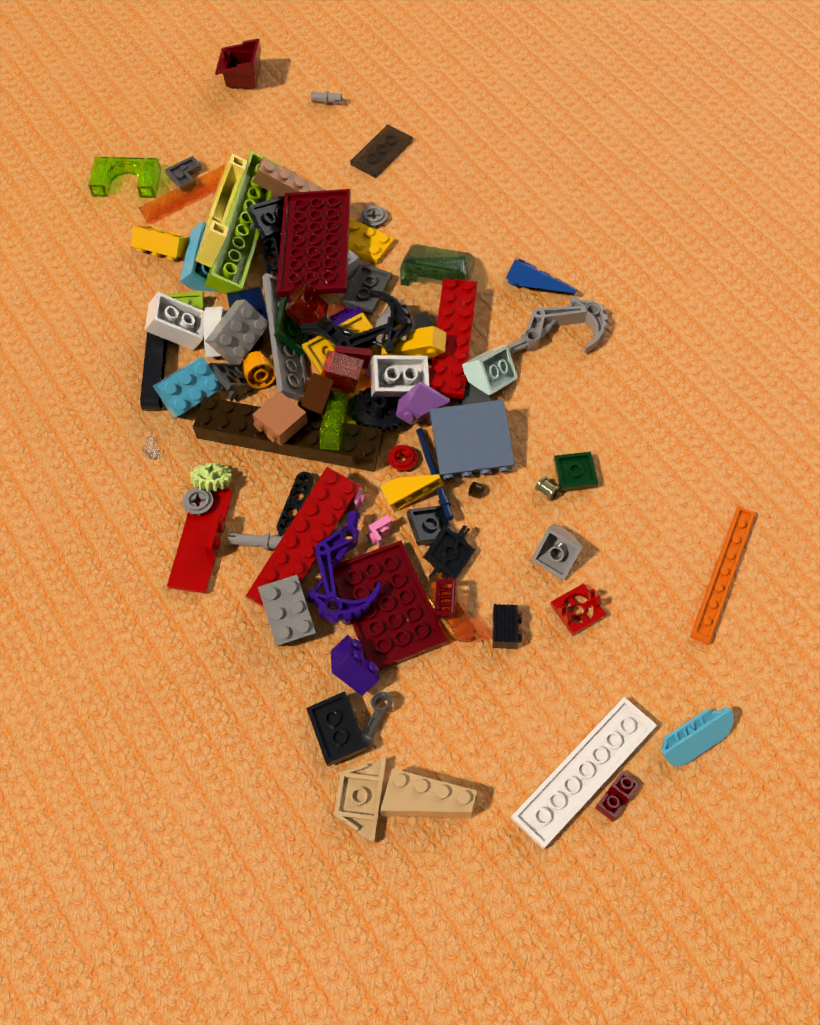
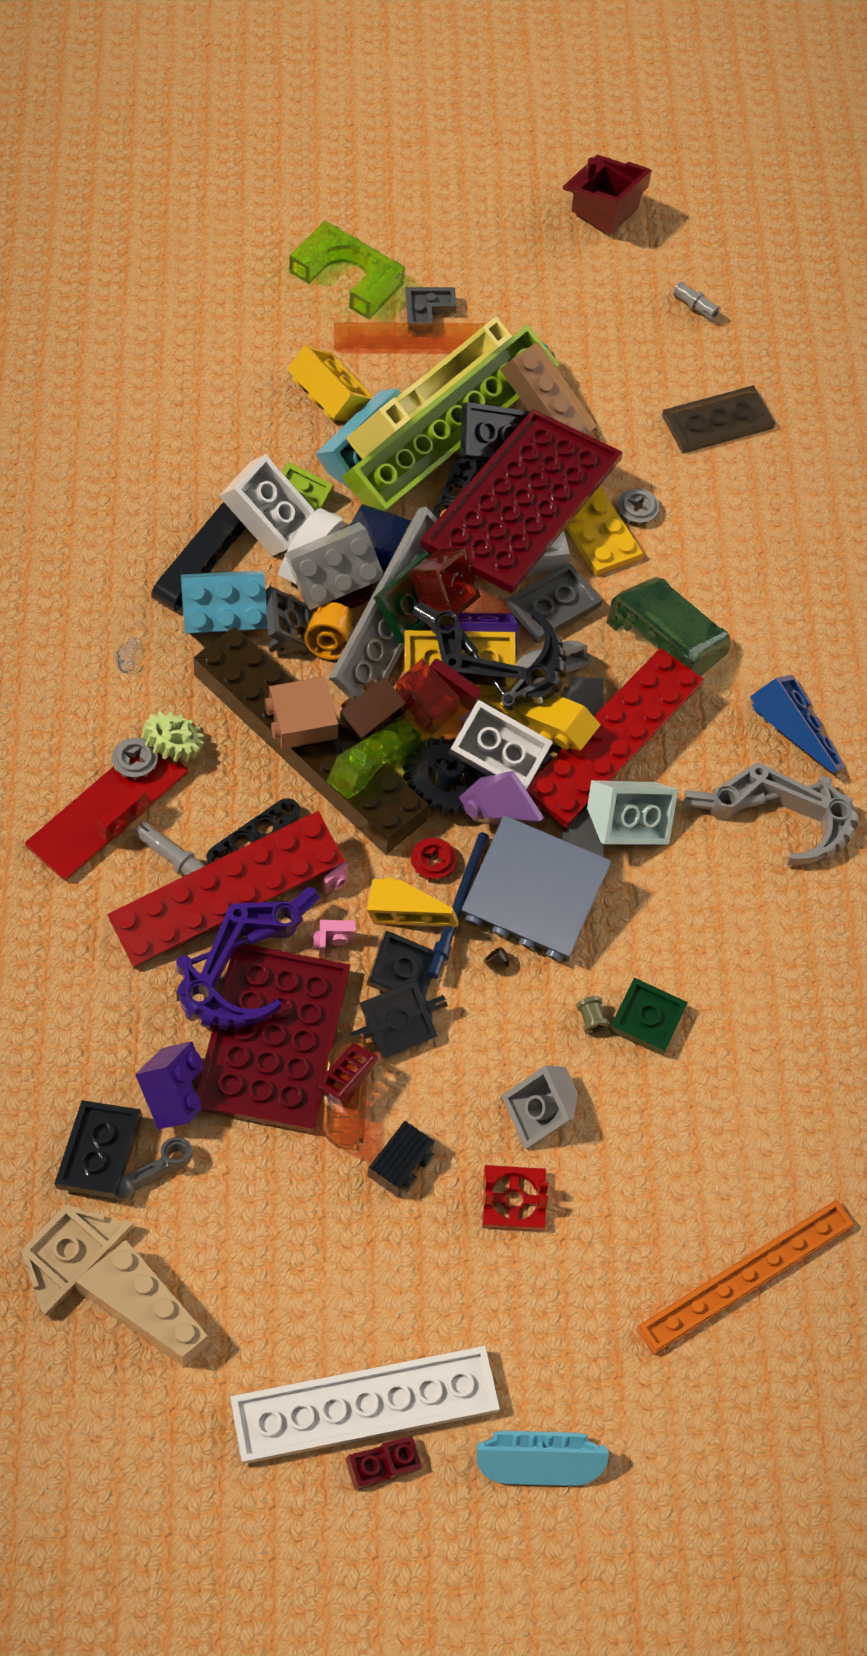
camera: 25 degrees right, 0 degrees up
(286, 610) = (140, 963): light grey brick -> none

